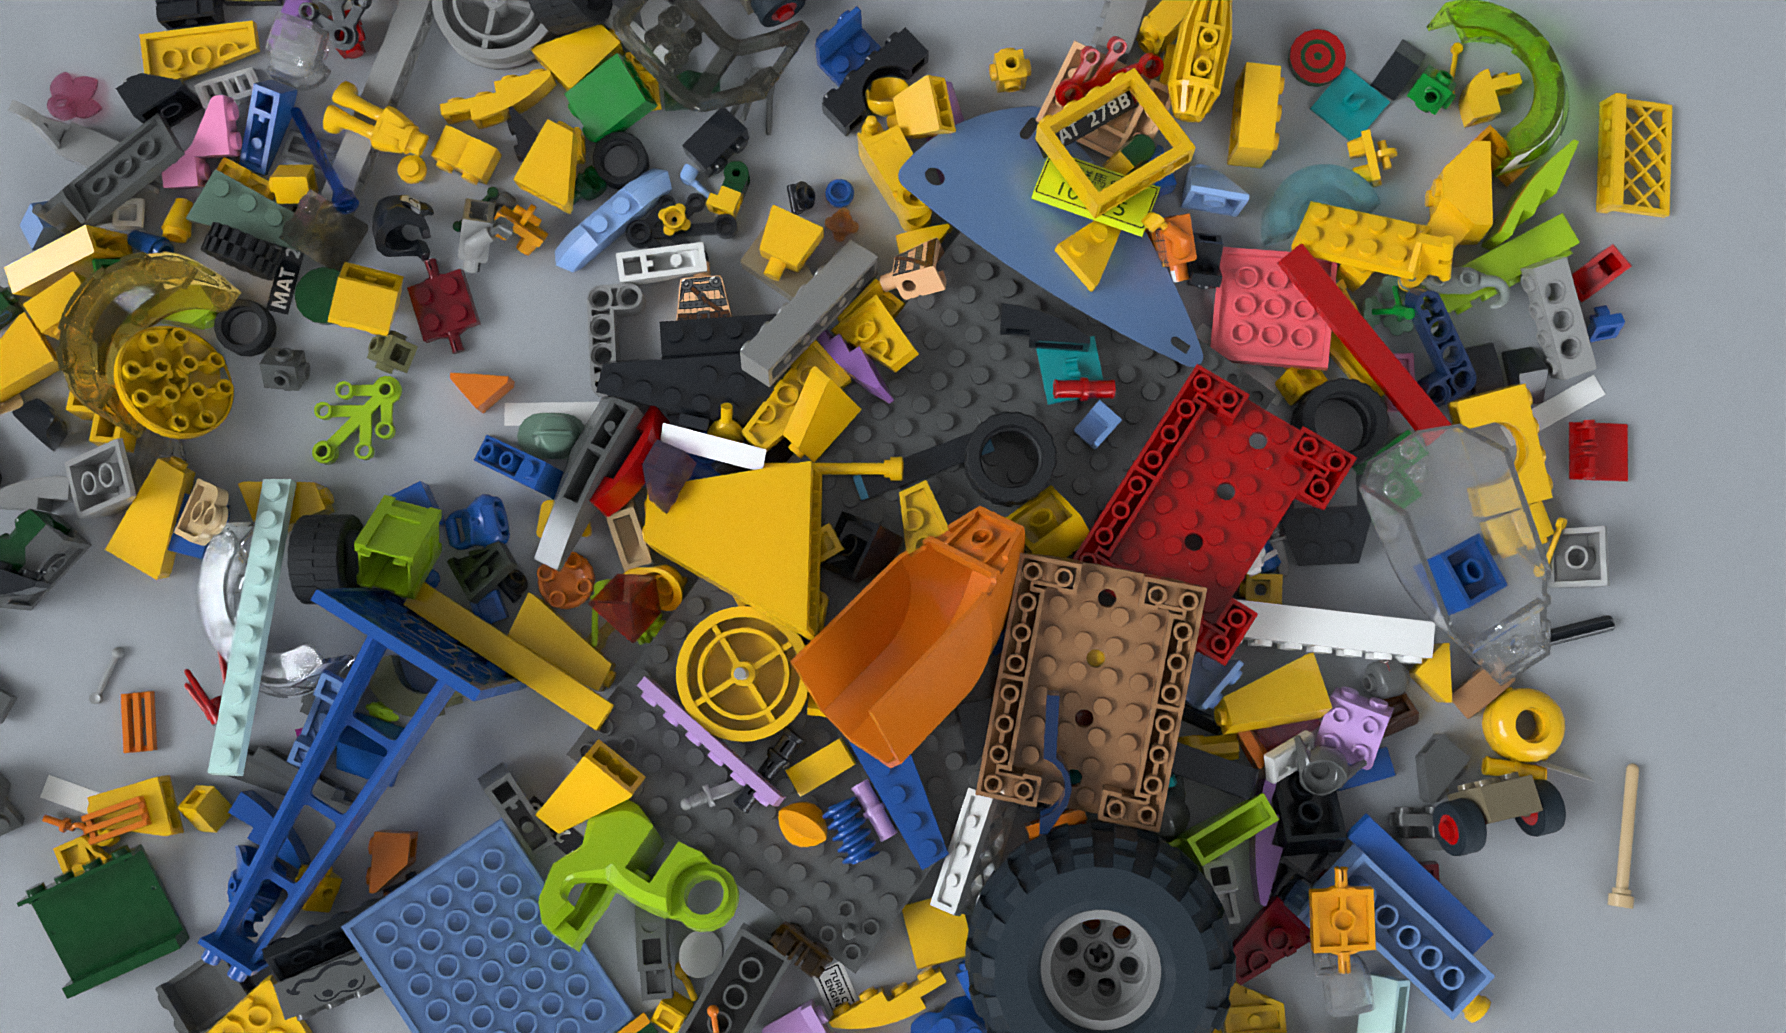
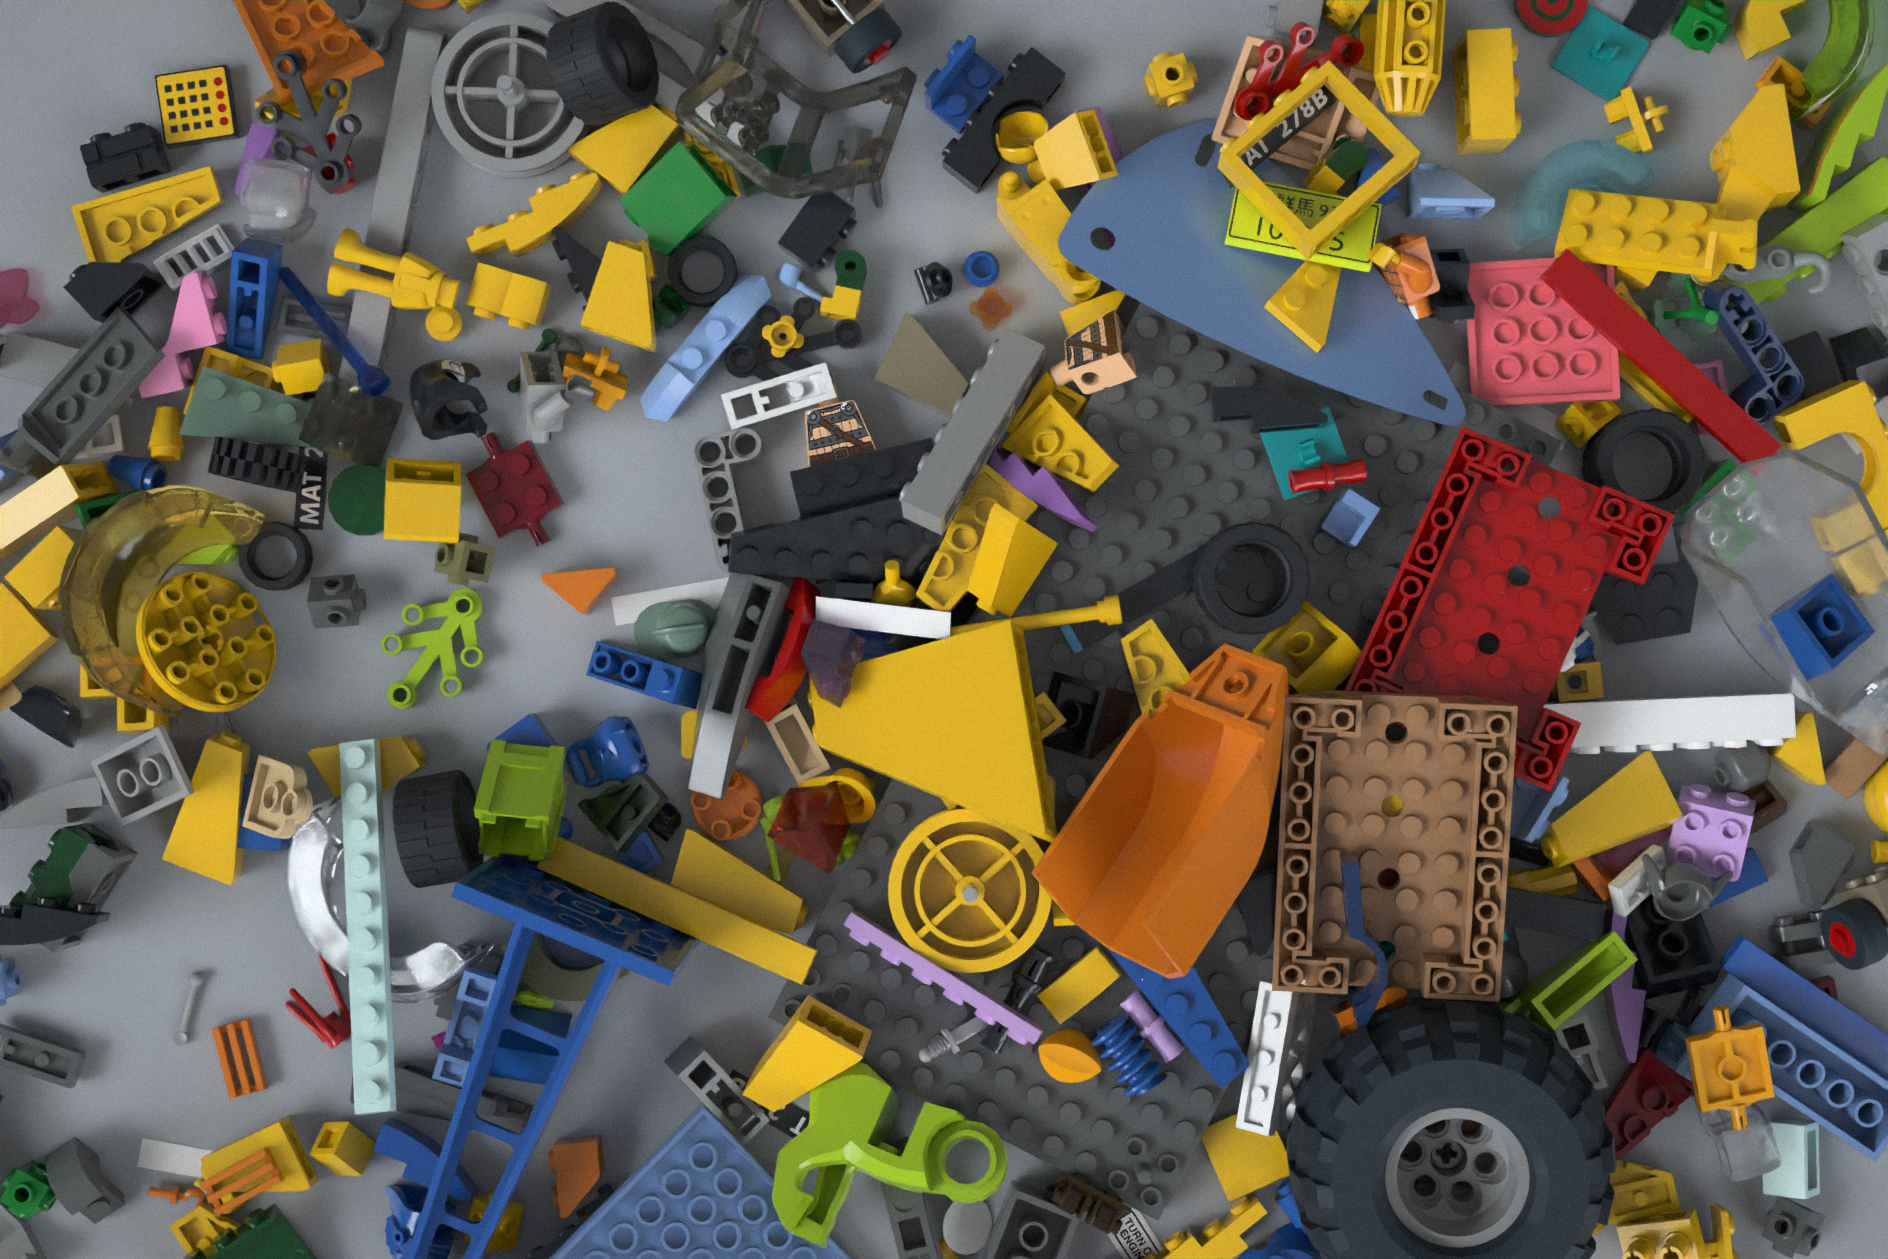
camera: 10 degrees left, 5 degrees up
(788, 242) = (931, 347): yellow torso -> none

